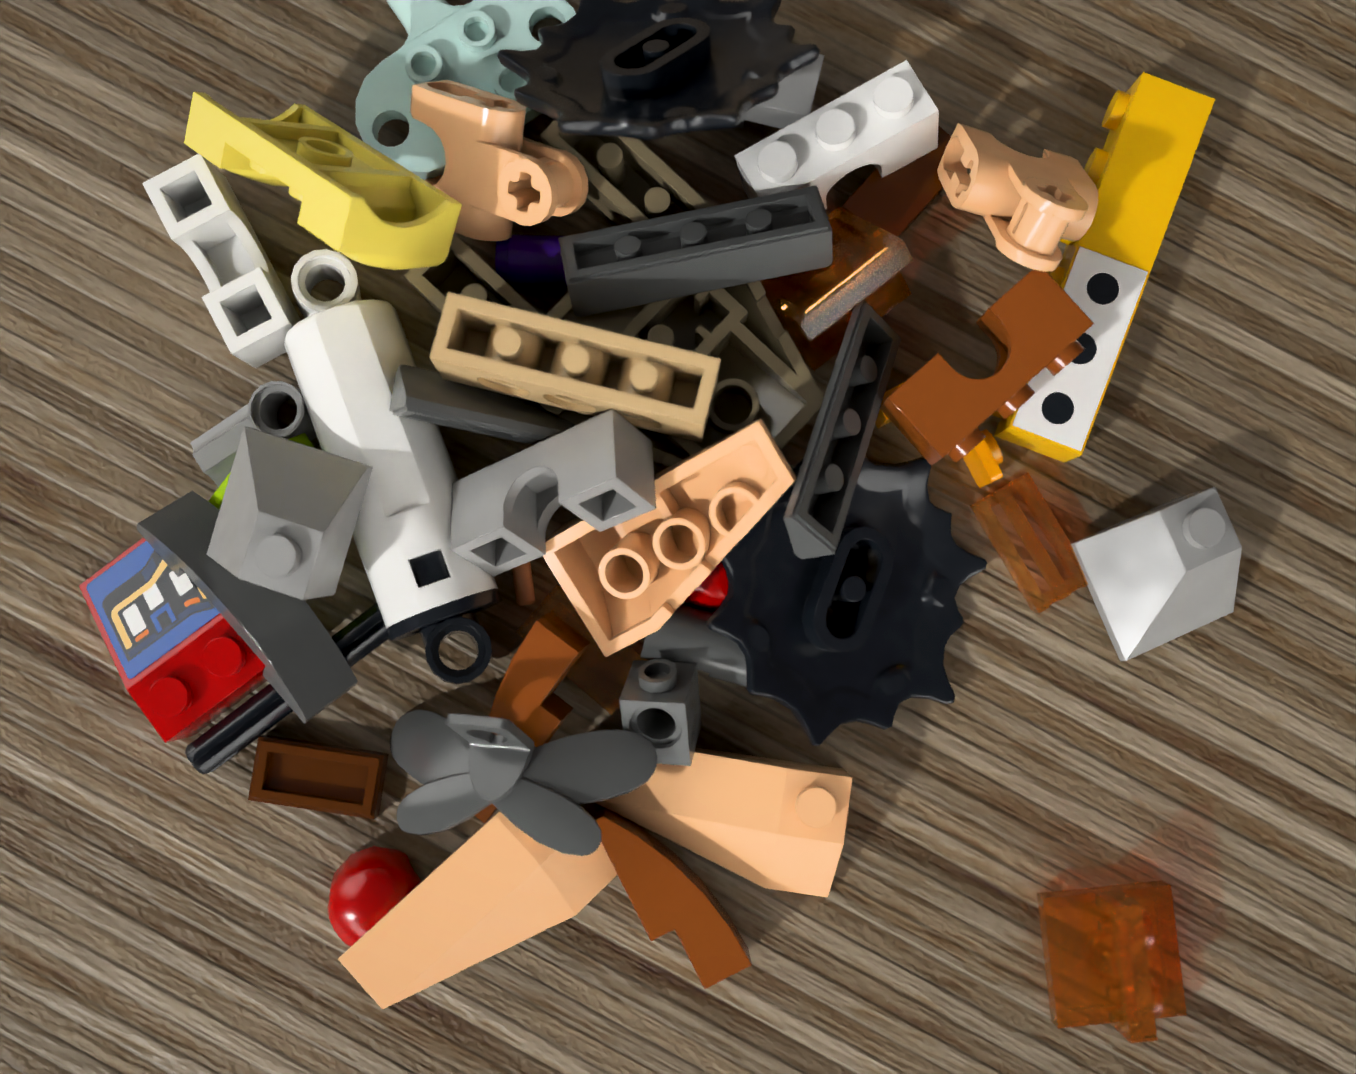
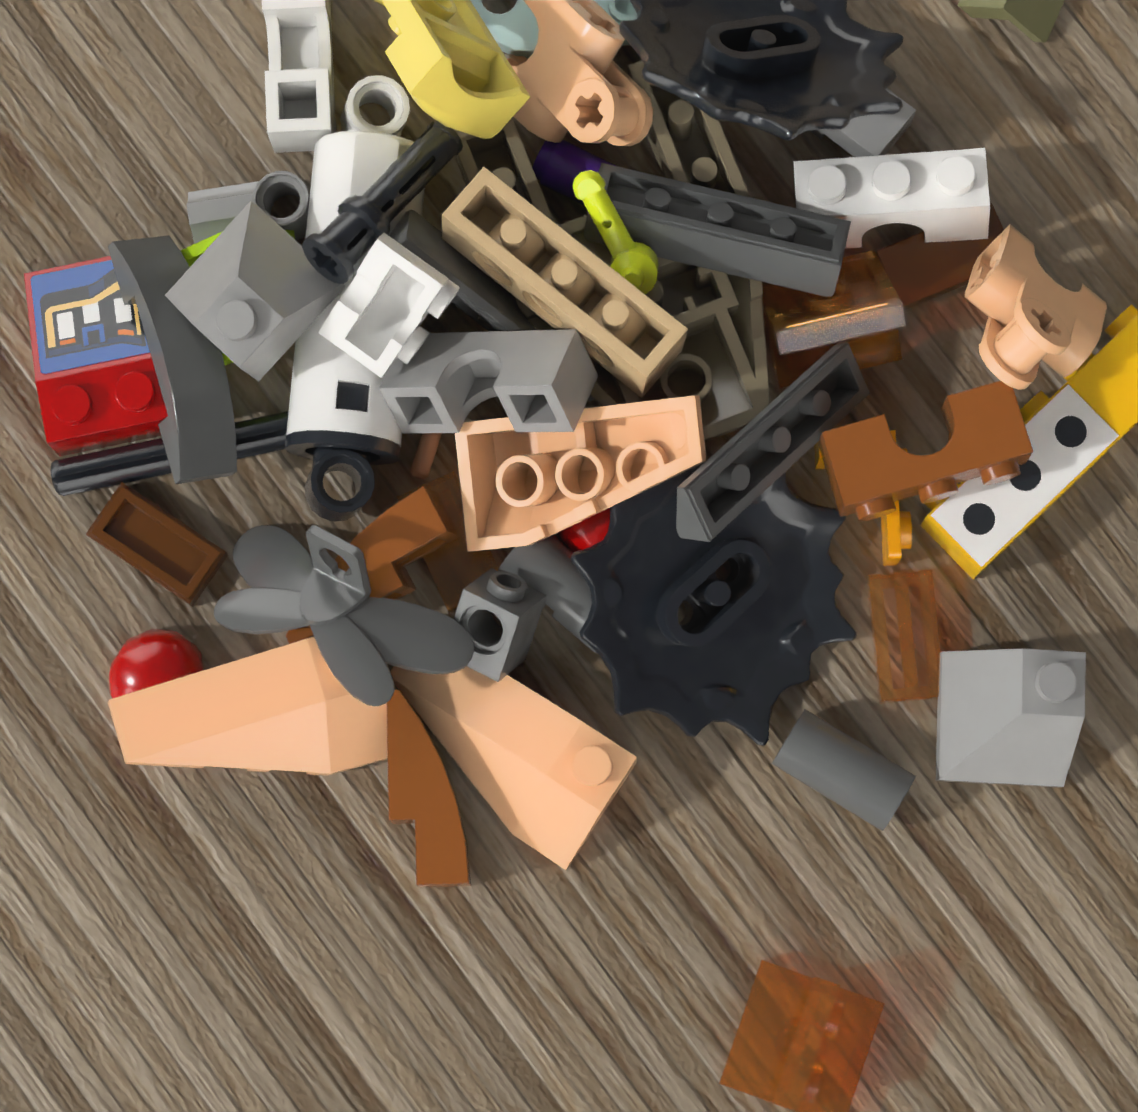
camera: 25 degrees right, 5 degrees down
(360, 394) = (369, 216): none -> black pin
(419, 470) = (386, 305): none -> white cylinder
(628, 316) = (630, 259): none -> neon yellow piece
(1037, 692) = (844, 770): none -> dark grey pin

